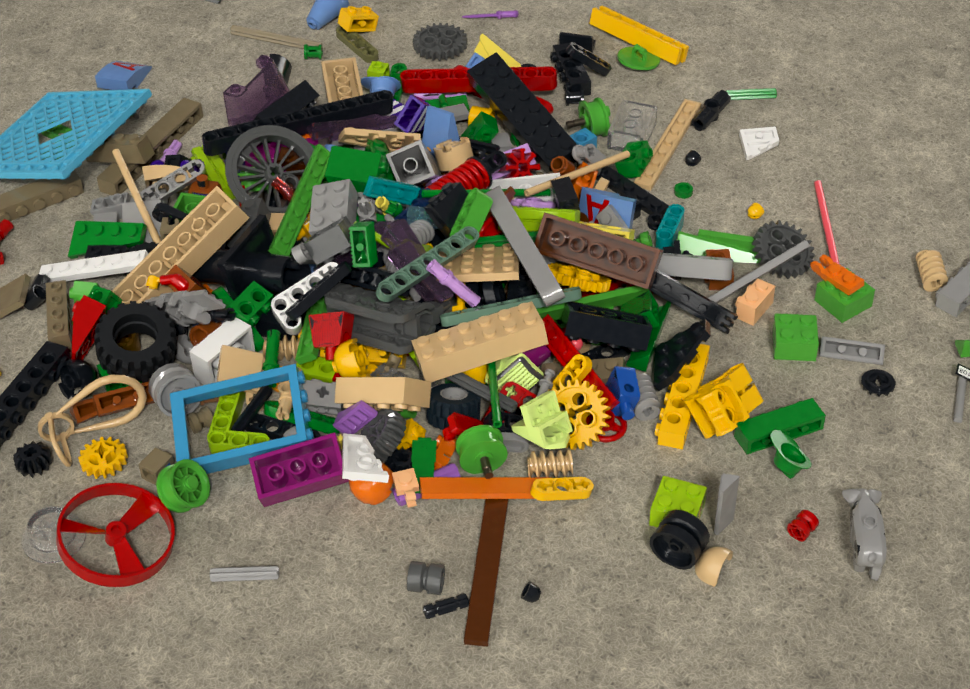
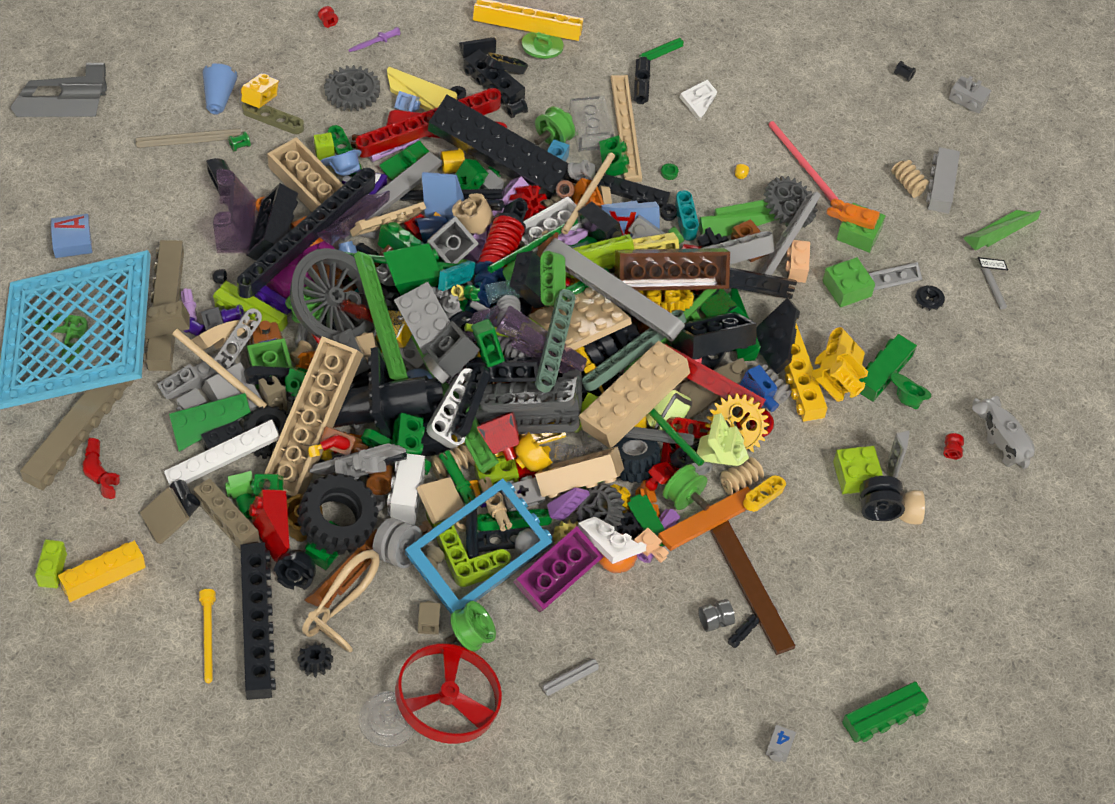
camera: 35 degrees left, 10 degrees up
(103, 457) = (375, 638): yellow gear -> none
(393, 361) = (561, 438): dark tan hand -> none
(413, 113) = (407, 184): dark purple torso -> none
(447, 278) = (579, 348): lavender pin -> none
(531, 592) = (797, 588): black hinge -> none
(546, 383) = (698, 407): light grey piece -> none
(579, 373) = (715, 382): yellow beam -> none
(692, 158) = (657, 136): black hinge -> none

